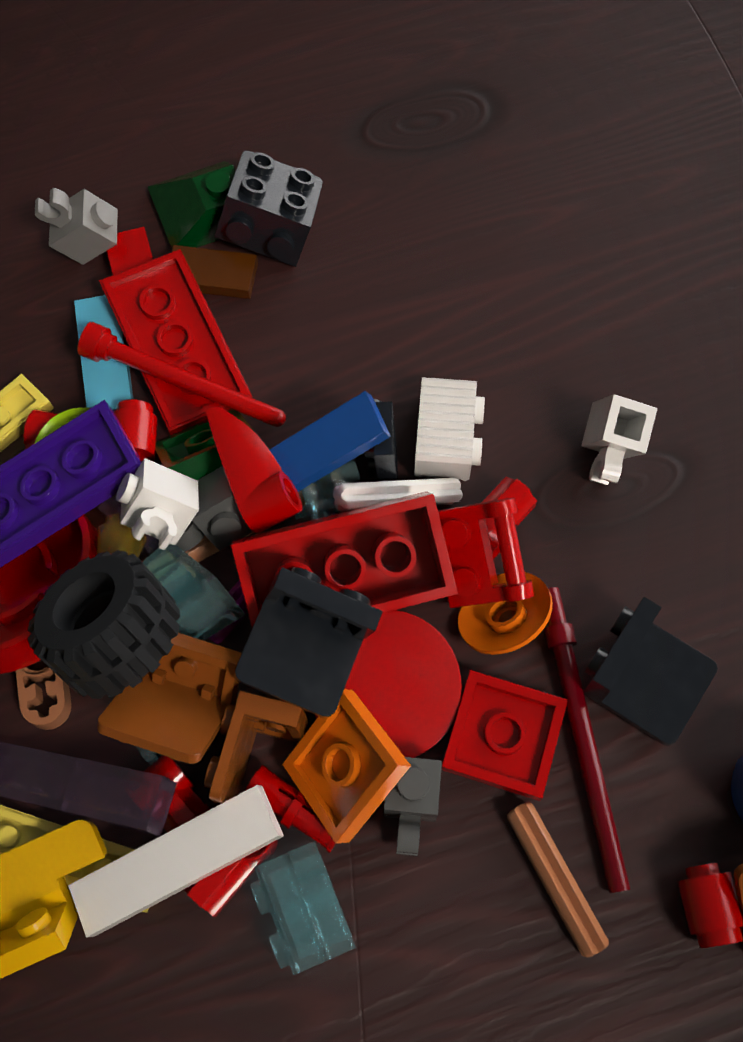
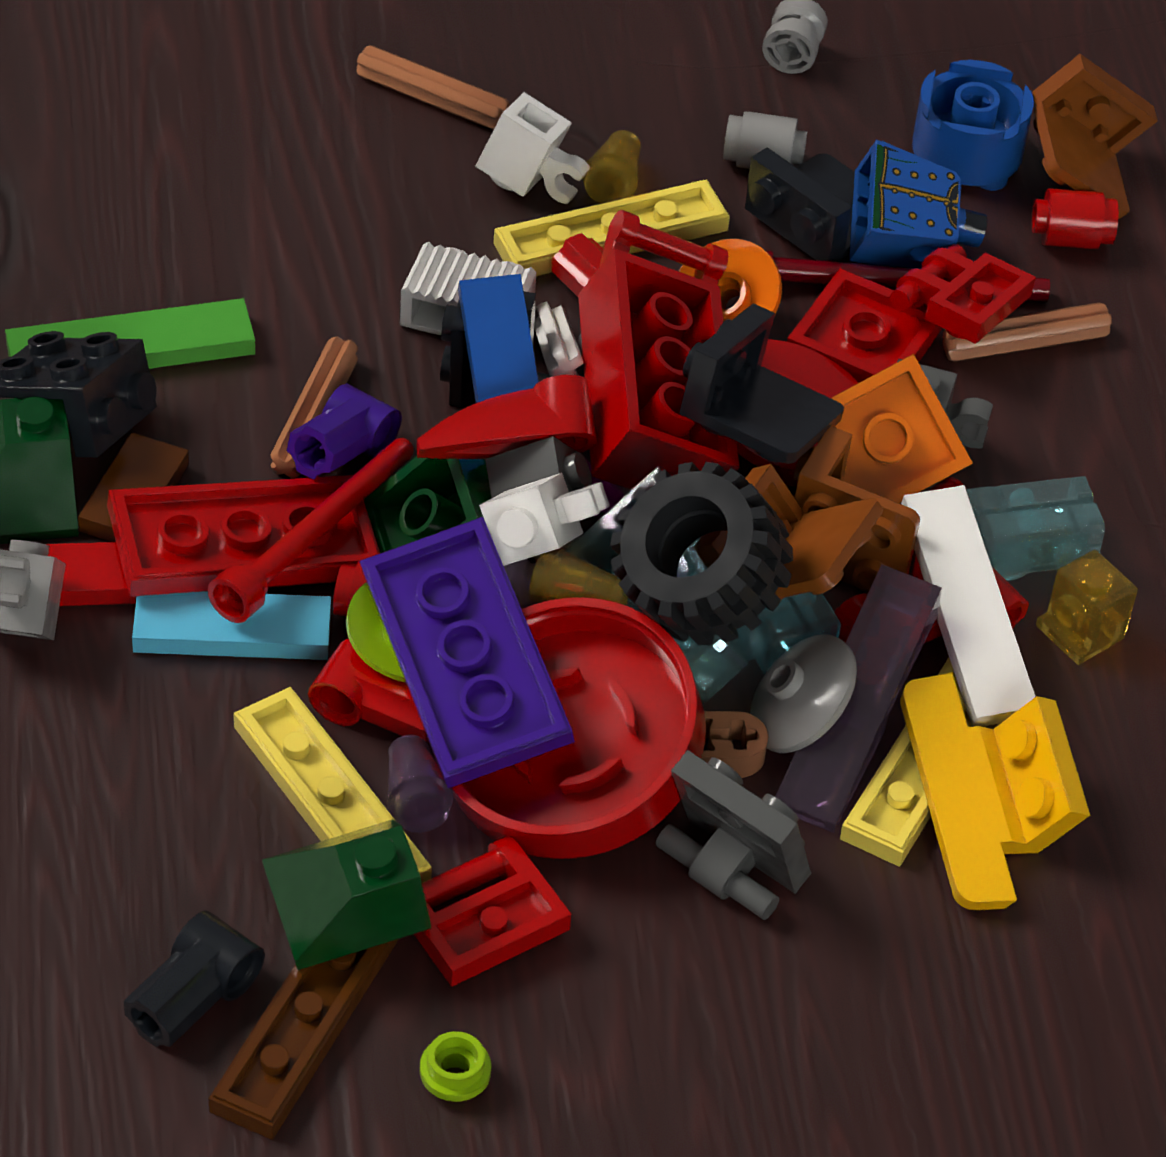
camera: 85 degrees left, 20 degrees down
(69, 745) = (805, 692): none -> light grey dish
(218, 970) = (1088, 607): none -> clear yellow brick
(292, 381) = (346, 428): none -> dark purple piece
(316, 357) = (328, 374): none -> nougat axle
(354, 243) = (168, 334): none -> bright green tile
(552, 823) = (963, 294): none -> red plate
(573, 520) = (682, 211): none -> light yellow tile
(635, 503) = (614, 168): none -> clear yellow cone
(652, 749) = (907, 209): none -> blue torso
(681, 359) = (431, 86): none -> nougat axle
(707, 613) = (756, 131): none -> light grey brick

